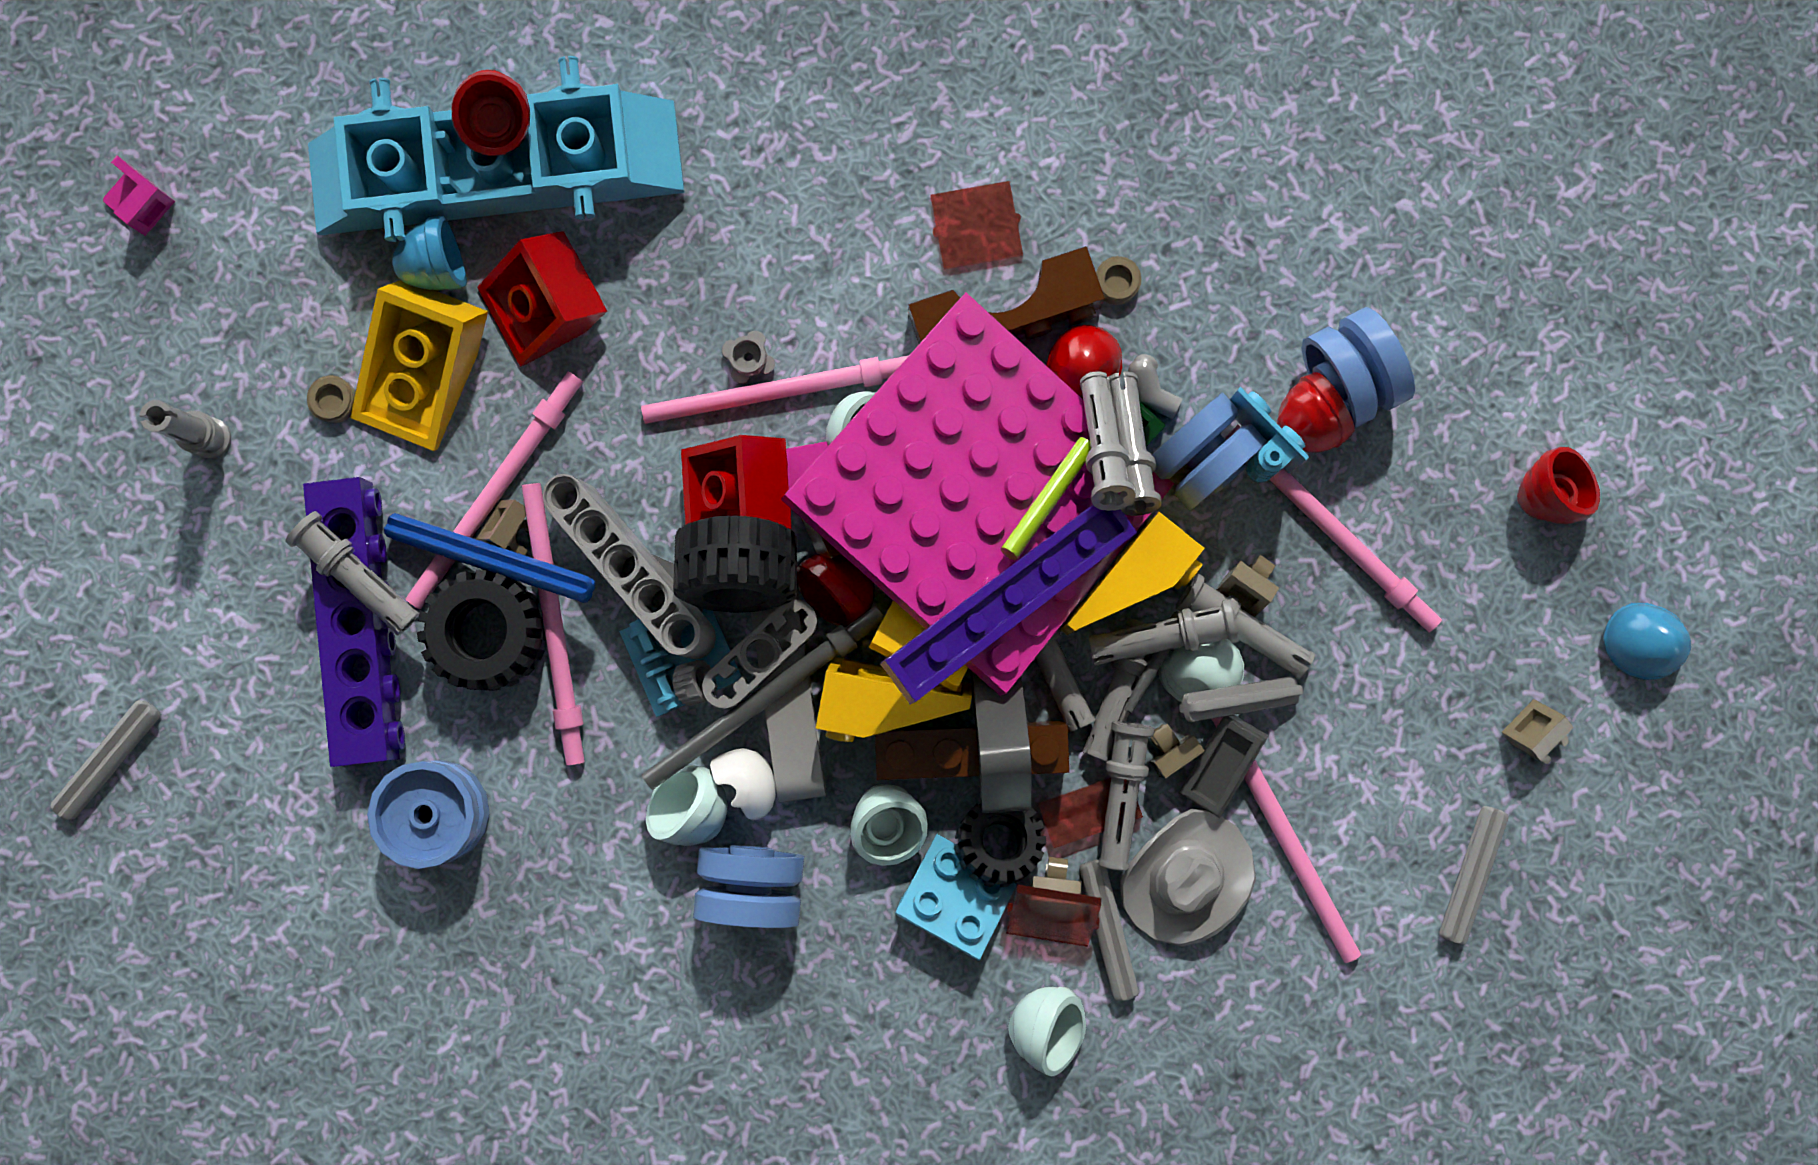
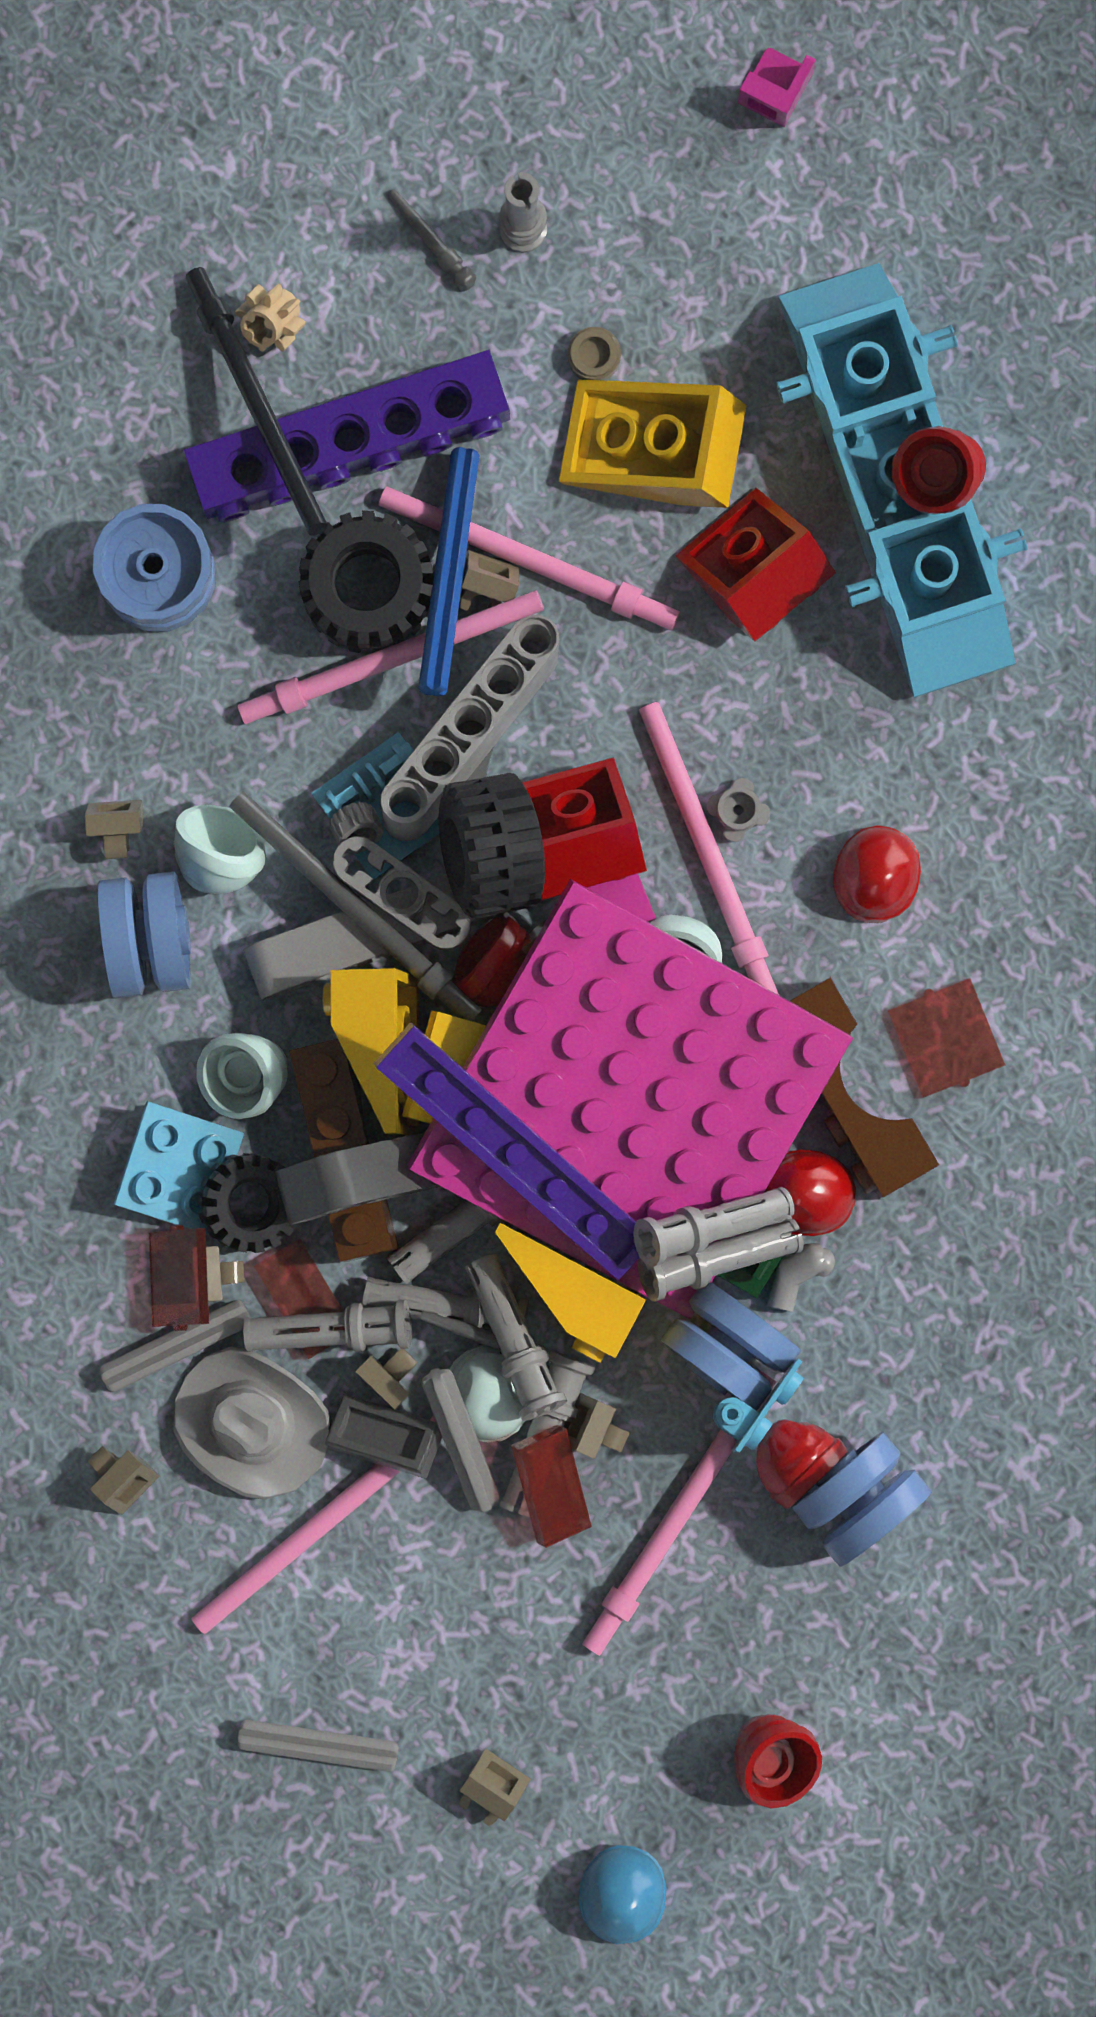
camera: 80 degrees right, 0 degrees up
(105, 760) = (142, 199): light grey axle -> none
(219, 507) = (447, 258): none -> dark grey piece
(226, 714) = (218, 320): none -> black bar
(233, 668) = (270, 317): none -> tan gear
(337, 559) = (411, 408): light grey pin -> none
(430, 256) = (773, 432): dark azure hat -> none
(645, 892) = (115, 822): none -> dark tan tile
(751, 779) = (263, 911): white hair -> none
(827, 253) = (876, 874): none -> red hat
(1046, 499) = (633, 1172): lime bar -> none
(1048, 1028) = (54, 1298): light aqua hat -> none
(1119, 279) = (914, 1211): dark tan tile -> none
(1215, 1000) = (122, 1478): none -> dark tan tile
(1293, 630) = (551, 1486): none -> clear red tile

